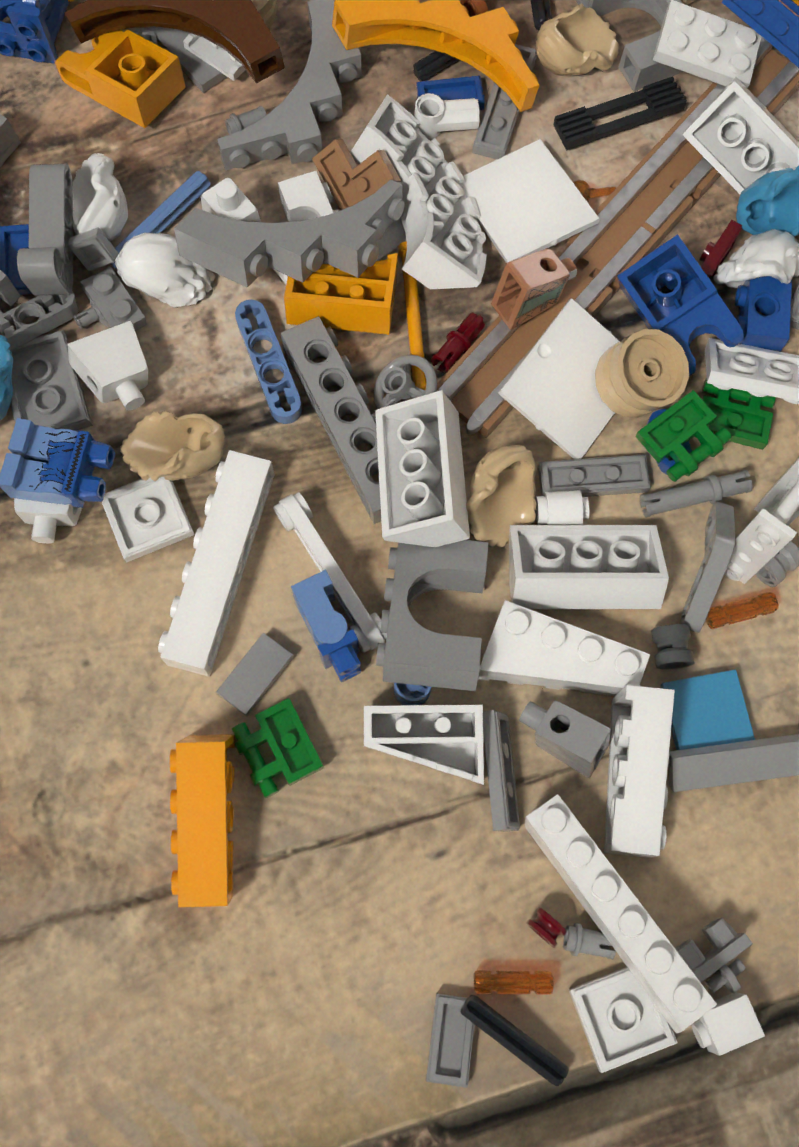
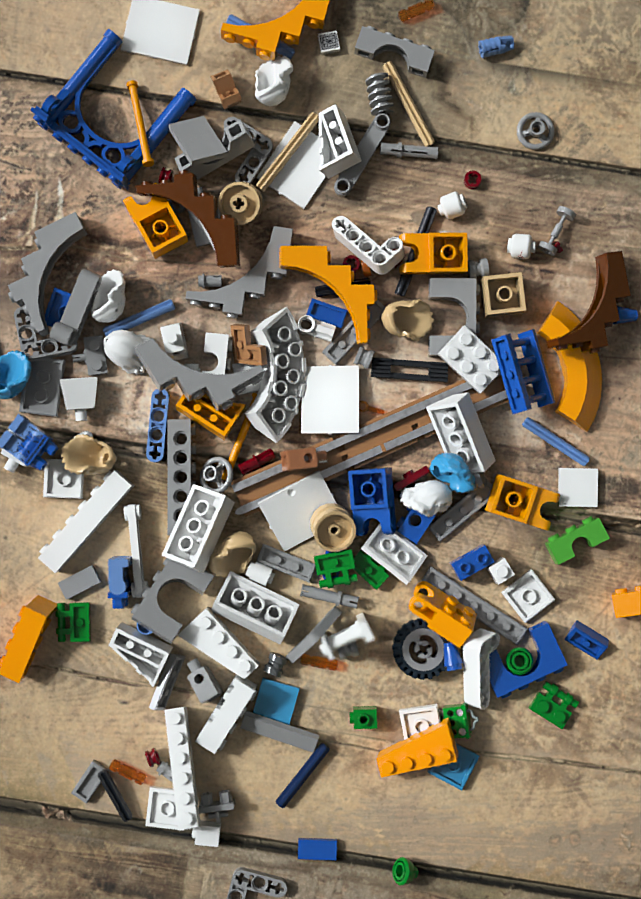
camera: 30 degrees right, 15 degrees up
(93, 249) = (95, 326): light grey tile -> none
(542, 123) = (363, 357): none -> light grey wheel

